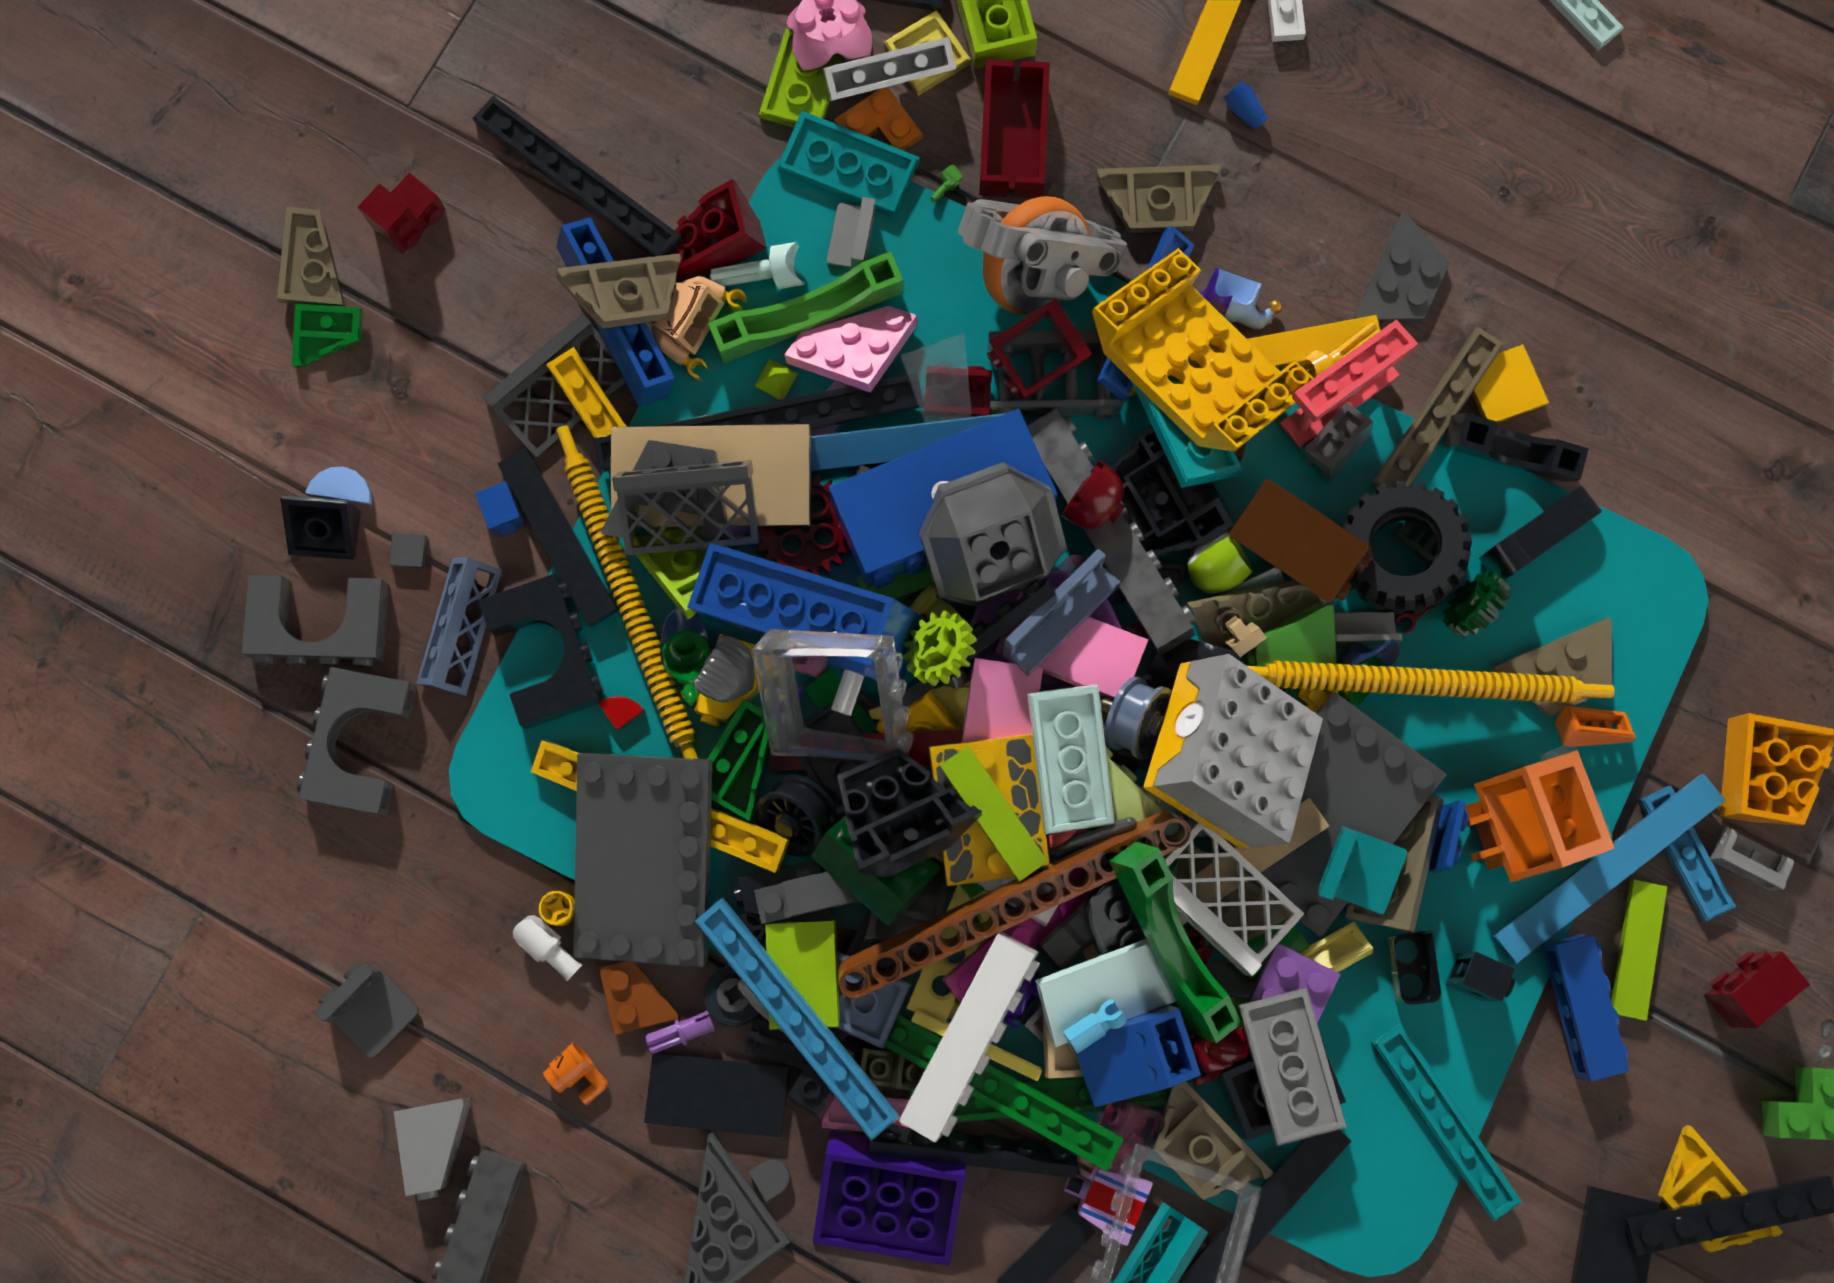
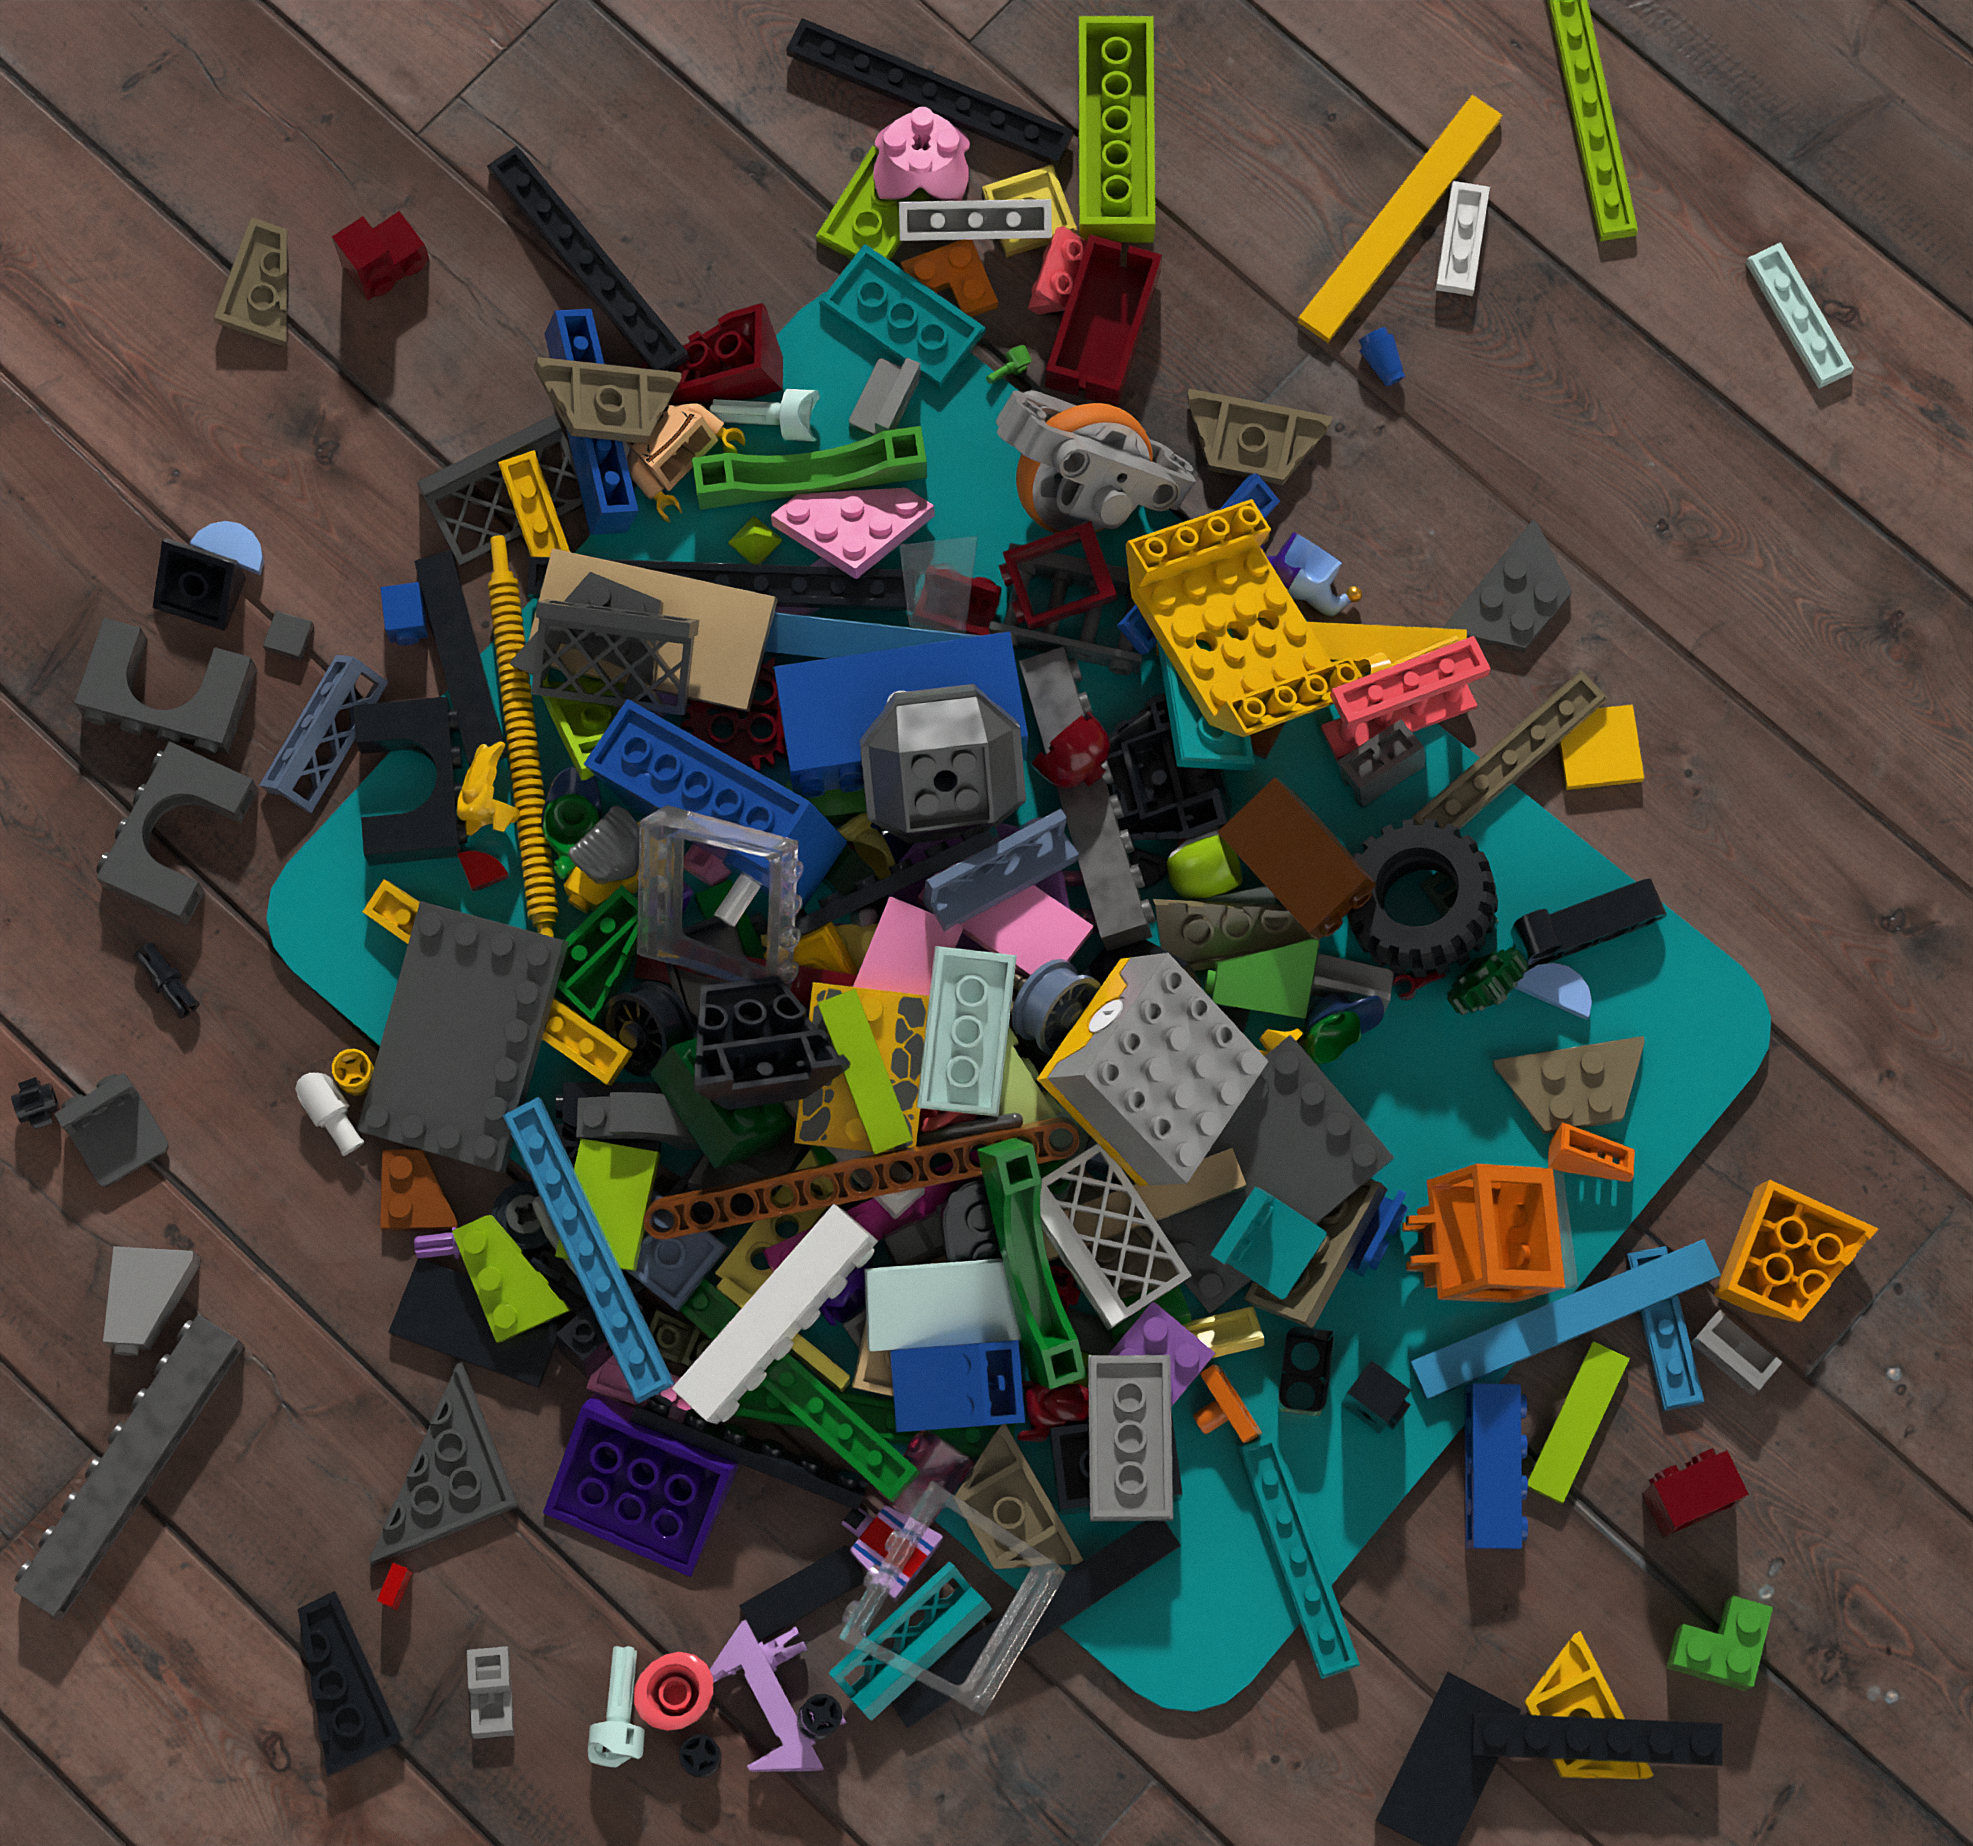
camera: 15 degrees right, 5 degrees down
(296, 1002) = (35, 1103): none -> black gear
(324, 331) = (257, 367): green wing -> none
(380, 868) = (166, 980): none -> black pin
(570, 1068) = (321, 1251): orange piece -> none
(601, 649) = (476, 795): none -> yellow hair
(732, 1059) = (505, 1282): none -> lime wing
(770, 1177) = (514, 1429): dark grey tile -> none
(939, 648) = (851, 874): lime gear -> none
(966, 98) = (1057, 272): none -> coral bracket
(1094, 1026) = (917, 1337): medium azure bar -> none
(1243, 637) = (1208, 954): tan tile -> none
(1355, 1013) = (1225, 1407): none -> orange tile
(1430, 682) = (1560, 1100): yellow hose -> none
(1497, 444) = (1571, 812): black arch -> none
(1533, 593) = (1559, 987): none -> light blue tile

